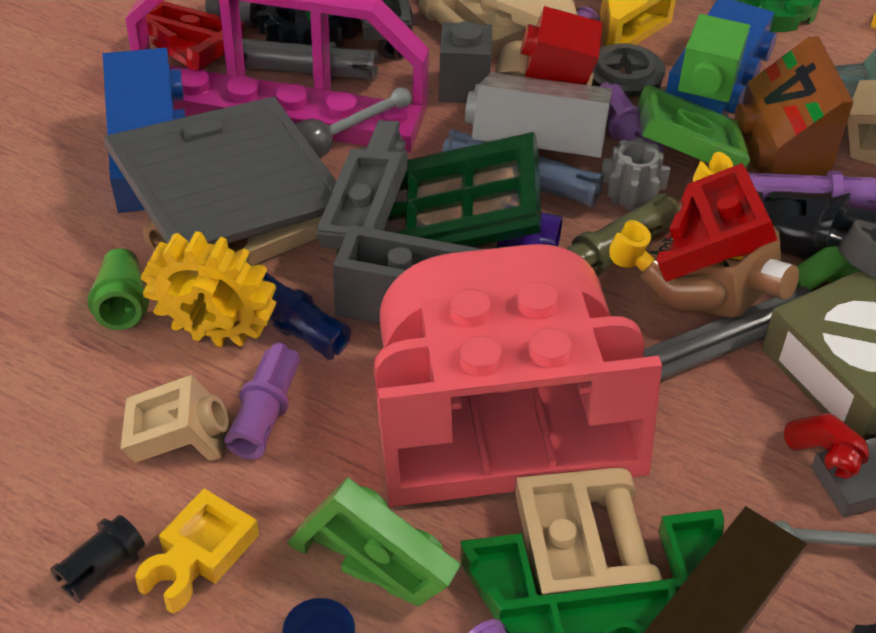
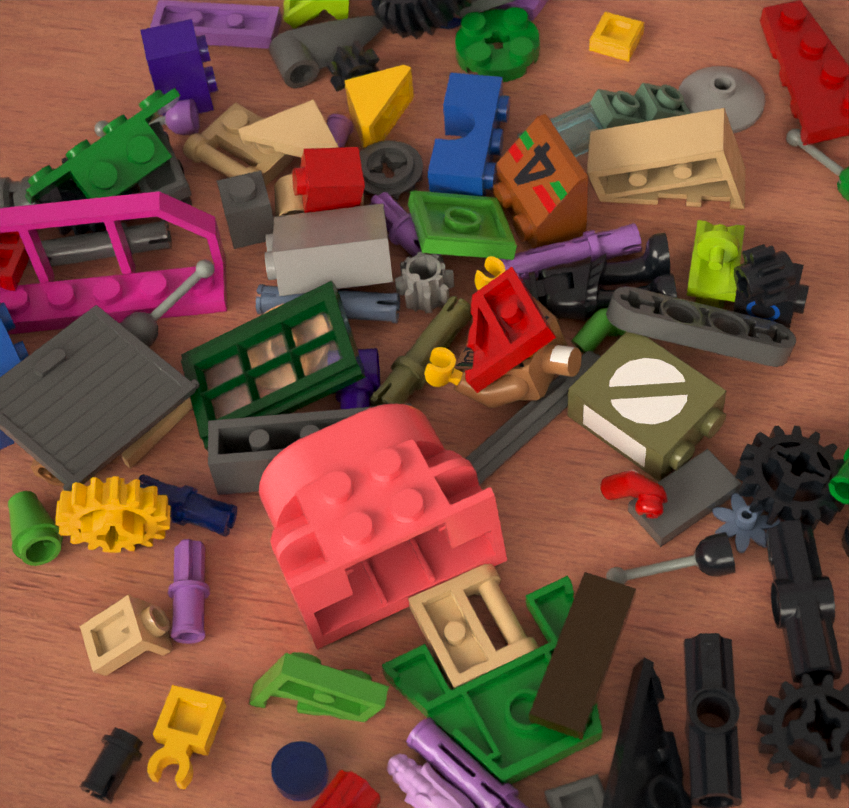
camera: 10 degrees left, 10 degrees up
(365, 186) = (207, 374): dark grey hinge -> none
(713, 57) = (462, 154): bright green brick -> none

